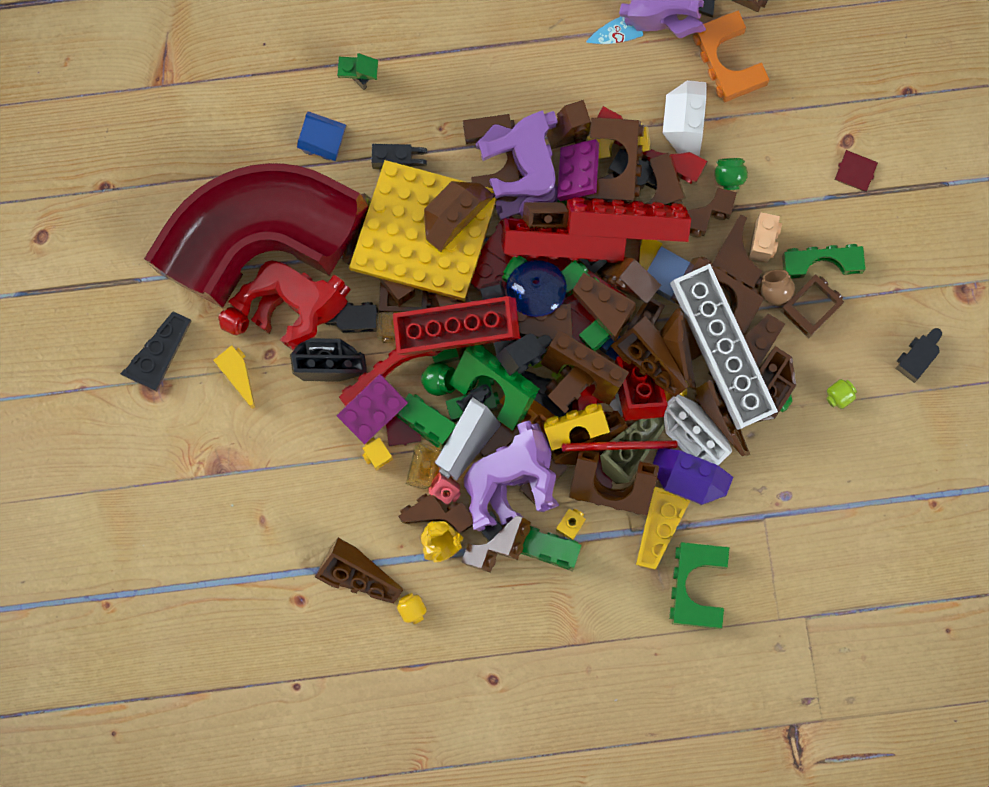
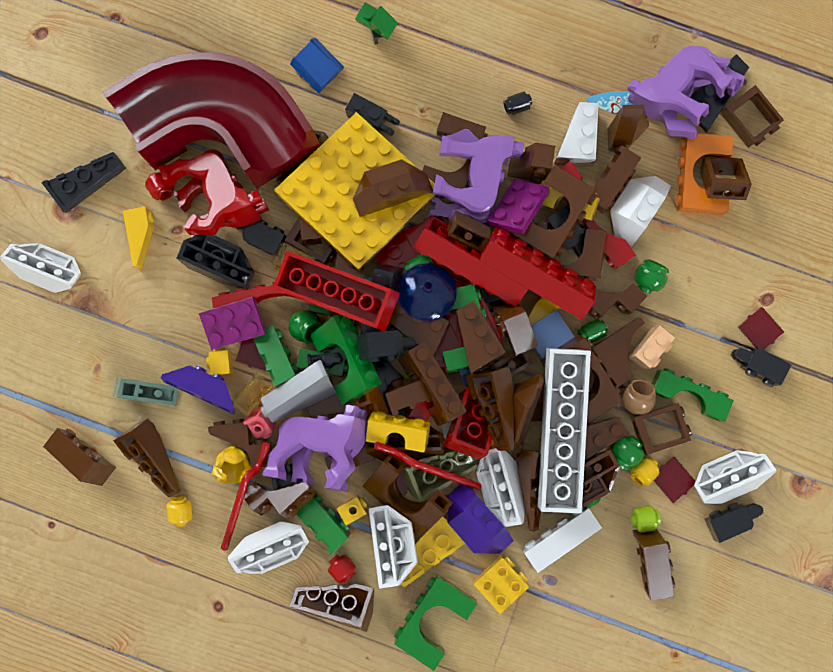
camera: 30 degrees right, 5 degrees up
(165, 450) = (42, 266): none -> white wedge
(291, 606) = (78, 457): none -> reddish brown wedge
(320, 516) = (145, 391): none -> sand green slope
(375, 479) = (201, 385): none -> dark purple wedge
(463, 561) = (241, 493): none -> red piece
(514, 597) = (268, 548): none -> white wedge
(526, 78) = (517, 103): none -> black brick
(589, 582) = (342, 568): none -> red head
(600, 79) = (581, 136): none -> white wedge
(608, 615) = (342, 604): none -> reddish brown wedge
(625, 533) = (392, 545): none -> white wedge
(638, 51) = (627, 127): none -> reddish brown wedge
(650, 101) = (614, 176): none -> reddish brown wedge
(705, 247) = (593, 330): none -> green brick
(742, 520) = (501, 583): none -> yellow brick
(746, 63) = (716, 187): none -> reddish brown window
(775, 451) = (561, 539): none -> white brick
(793, 341) = (628, 452): none -> green piece
(817, 351) = (645, 472): none -> yellow head
(849, 347) = (674, 480): none -> dark red piece
(871, 429) = (656, 564): none -> wedge
(873, 202) = (762, 365): none -> black hinge
(899, 315) = (732, 476): none -> white wedge

